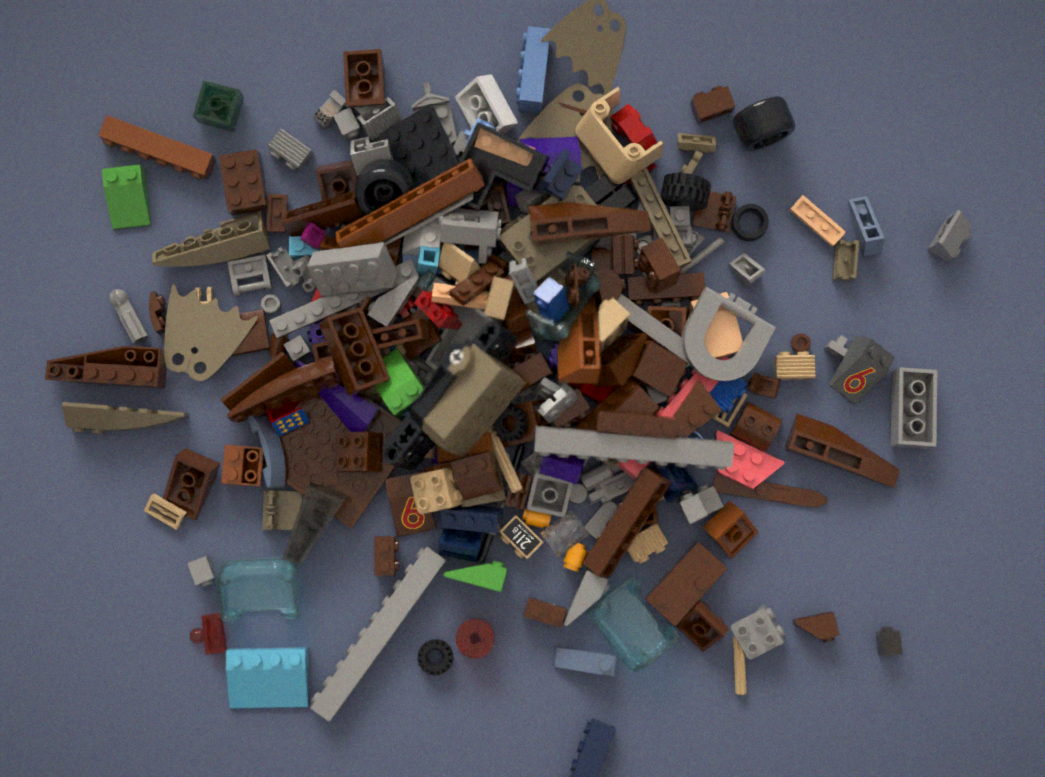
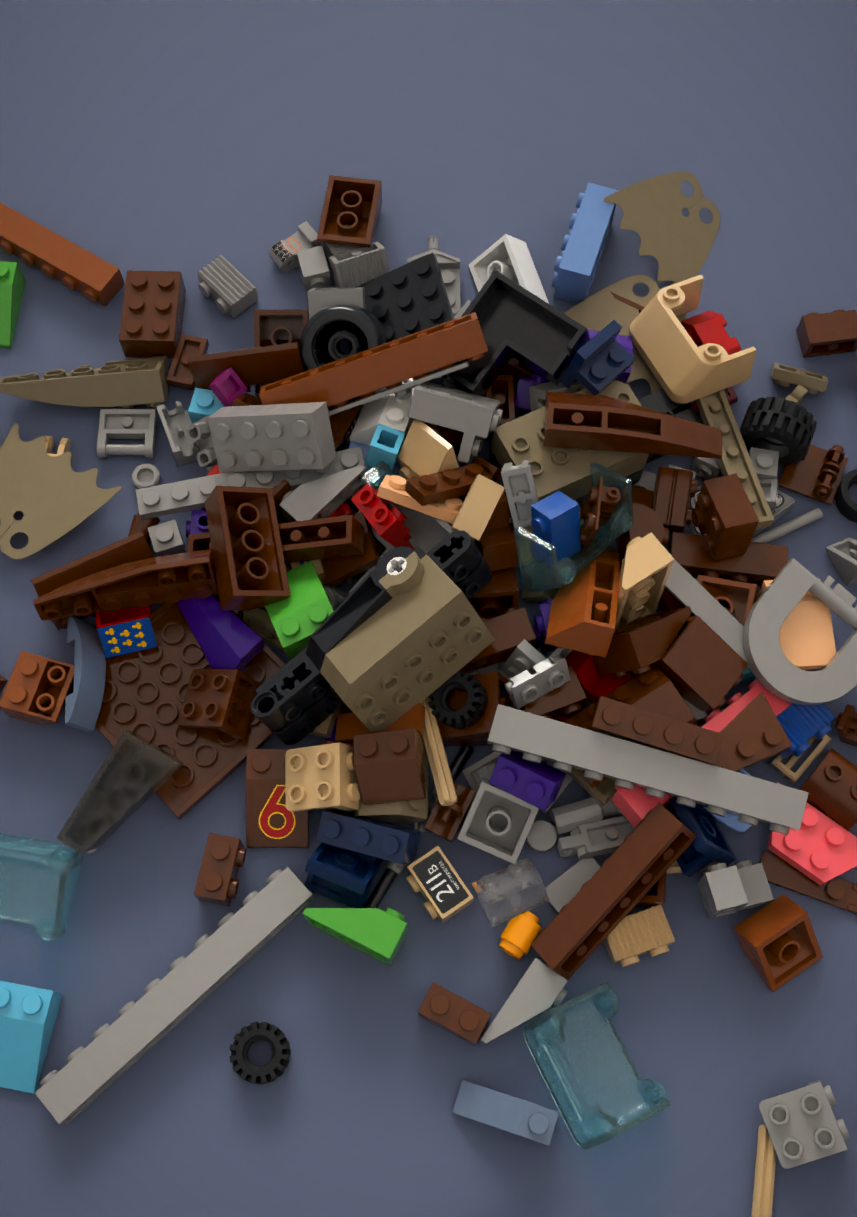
camera: 15 degrees right, 15 degrees down
(218, 106) = (145, 215): clear green brick -> none
(257, 337) = (113, 517): reddish brown slope -> none
(280, 509) = (74, 766): dark tan hinge -> none
(466, 644) = (314, 1040): clear red brick -> none
(503, 148) = (523, 316): light nougat plate -> none
(536, 518) = (470, 859): light orange brick -> none
(685, 583) = (693, 1015): reddish brown brick -> none
(702, 626) = (710, 1093): reddish brown brick -> none

